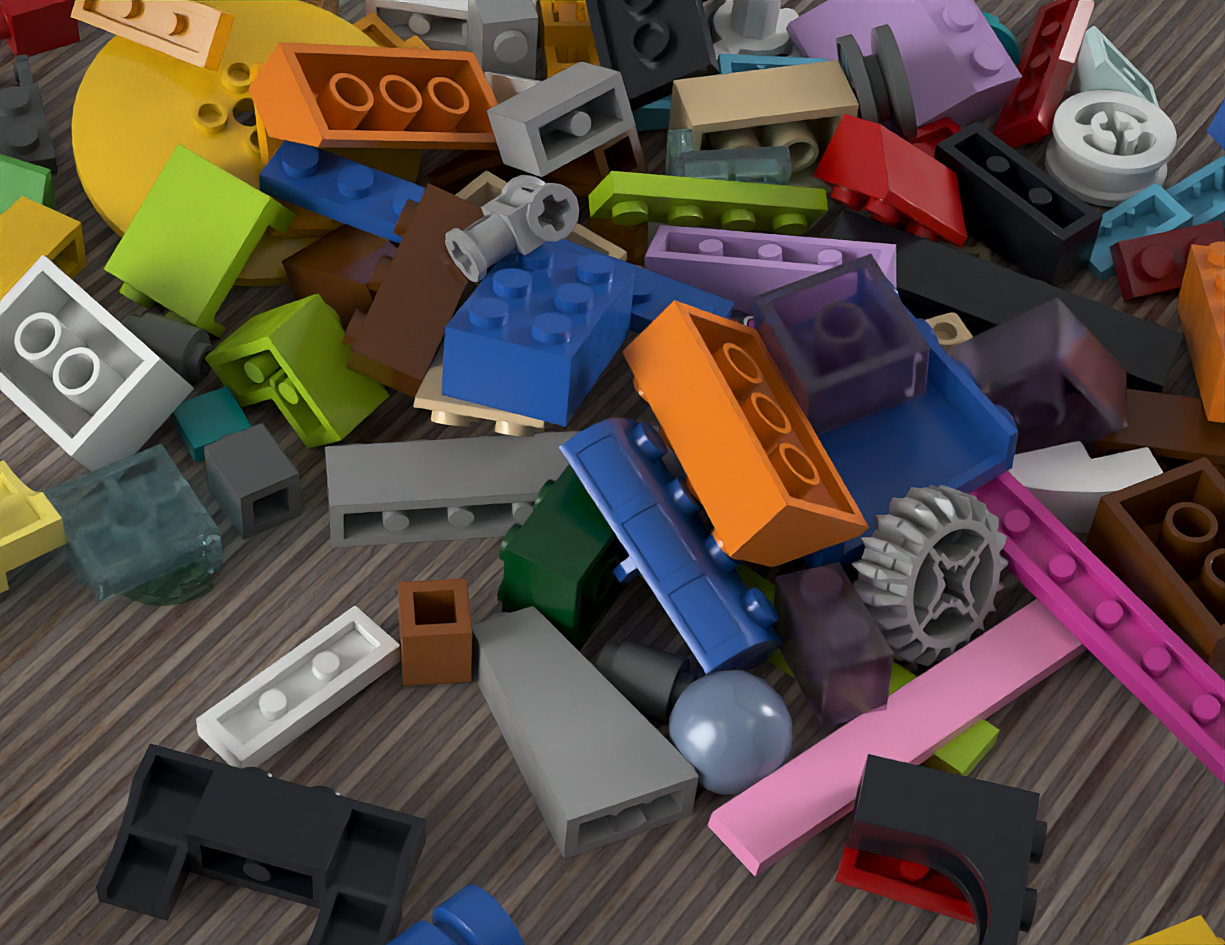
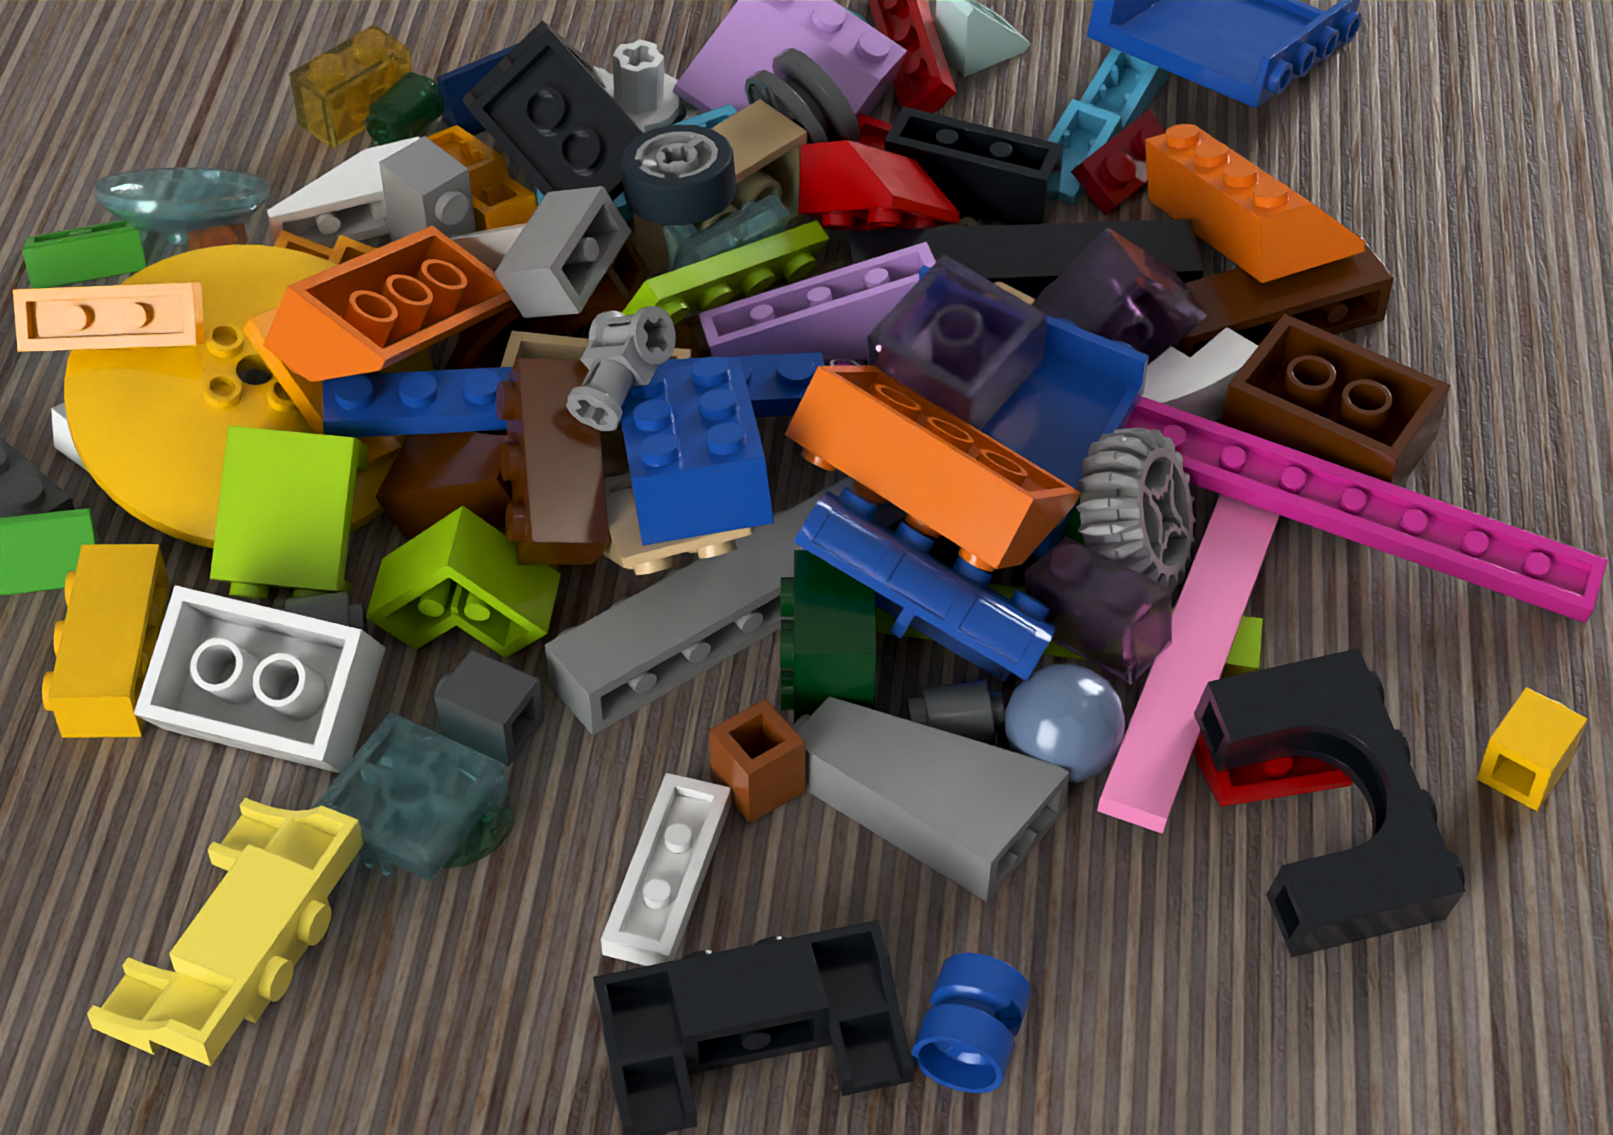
camera: 25 degrees left, 0 degrees up
(207, 420) = (409, 676): teal tile -> none
(704, 92) = (678, 174): none -> black wheel
(1109, 146) = (1011, 82): white wheel -> none

